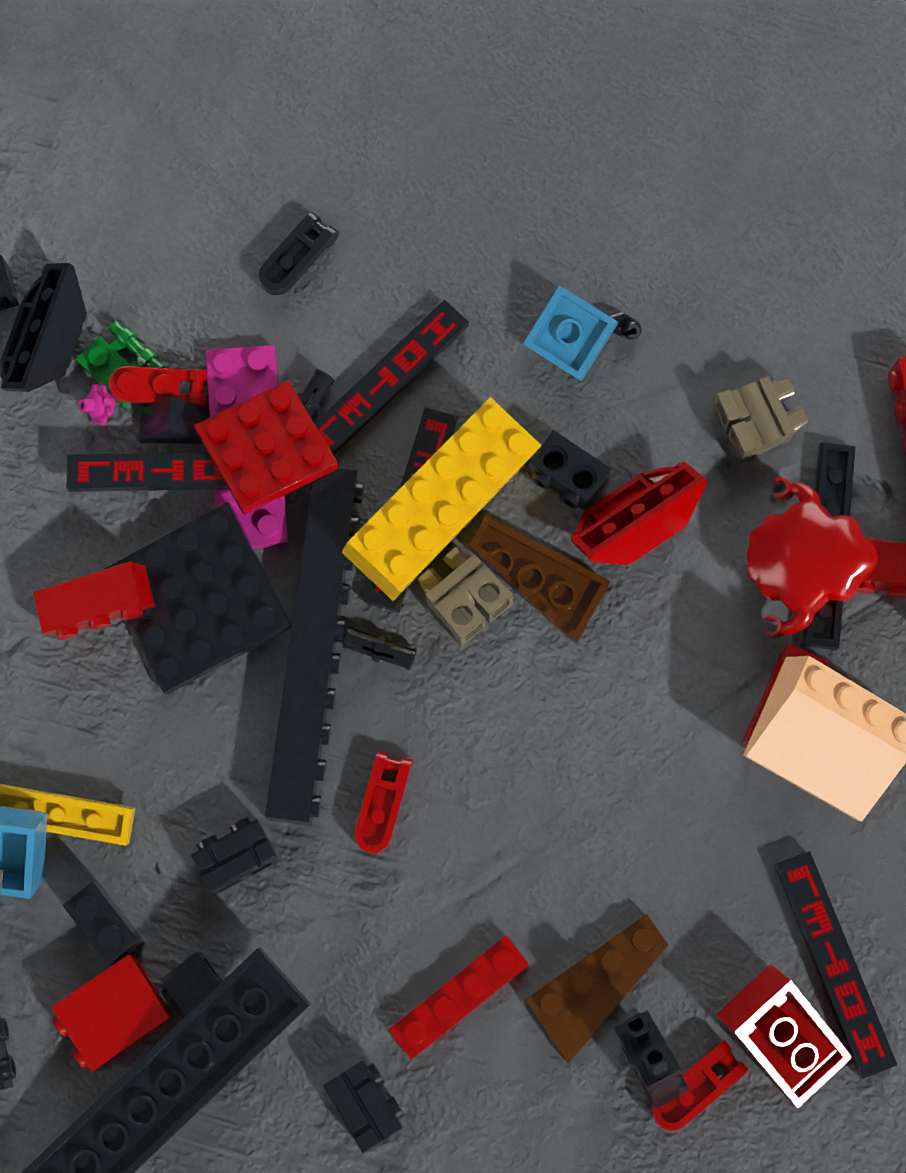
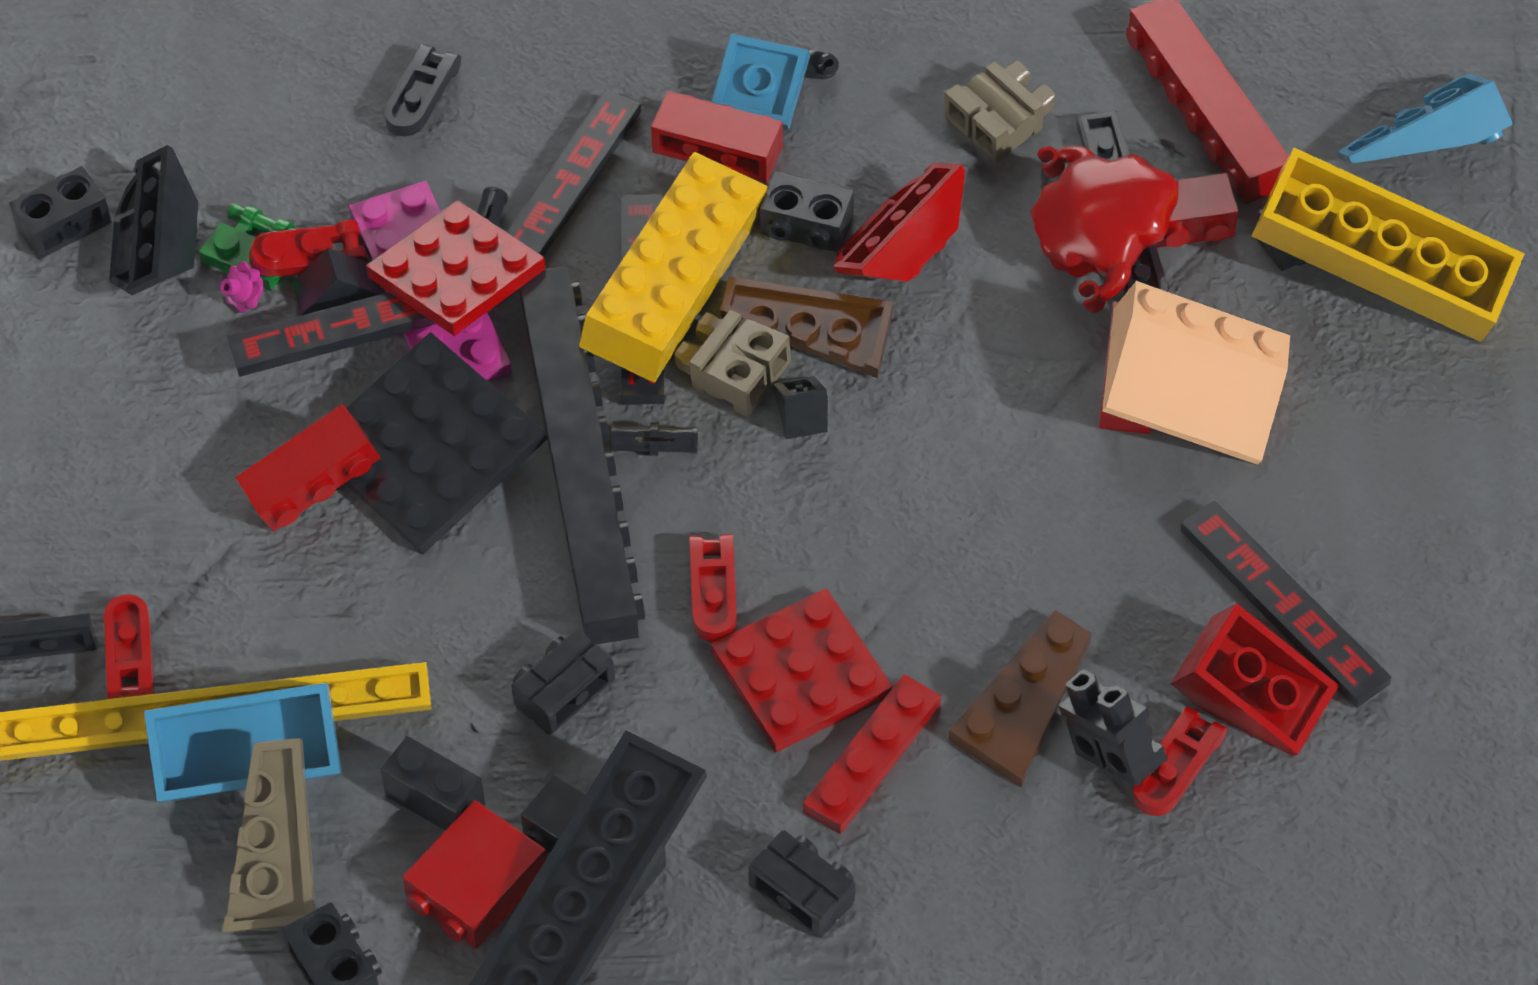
camera: 15 degrees left, 20 degrees down
(427, 901) = (801, 670): none -> red plate
(506, 651) = (802, 406): none -> black slope
(520, 373) = (718, 132): none -> brick

